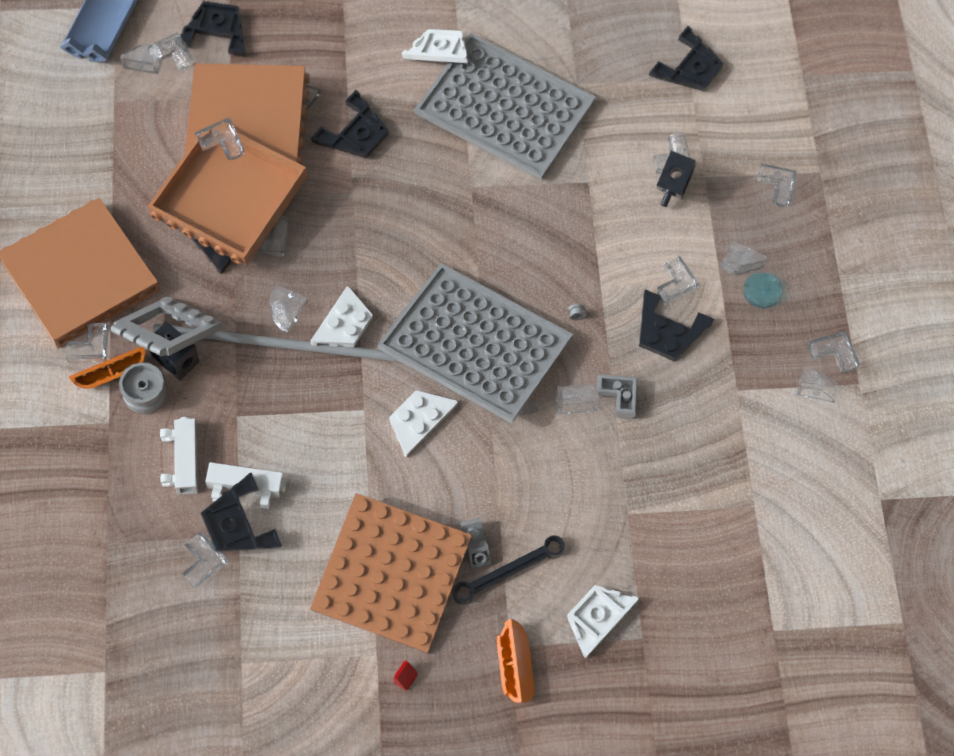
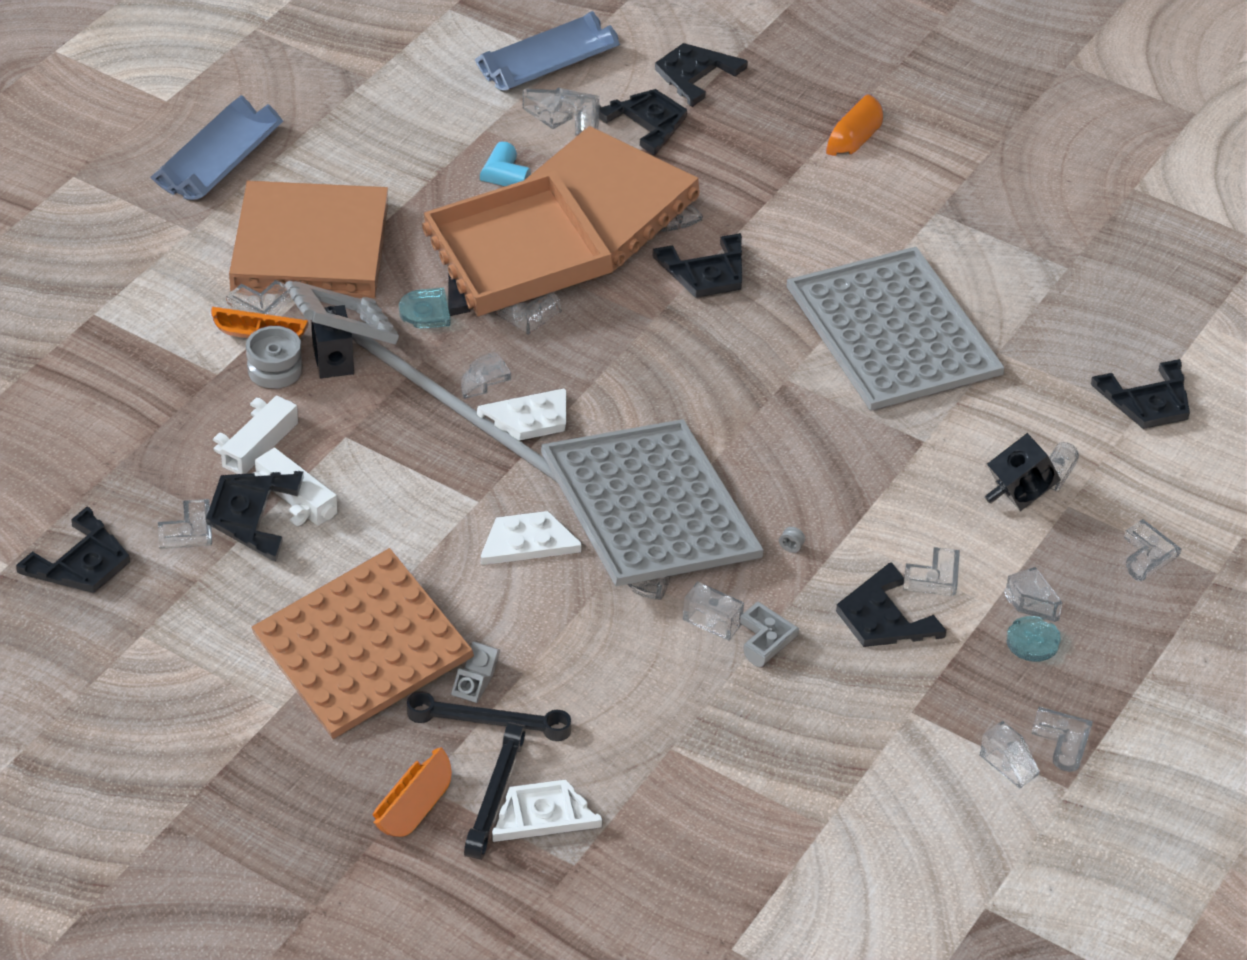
camera: 40 degrees right, 20 degrees down
(156, 133) = (501, 167): none -> medium azure brick
(161, 633) = (87, 563): none -> black wing
(202, 279) = (425, 308): none -> clear light blue tile
(223, 134) = (551, 186): clear brick -> none
(405, 675) = (287, 737): red slope -> none
(438, 46) = (867, 240): white wing -> none
(579, 663) = (478, 836): none -> black piece

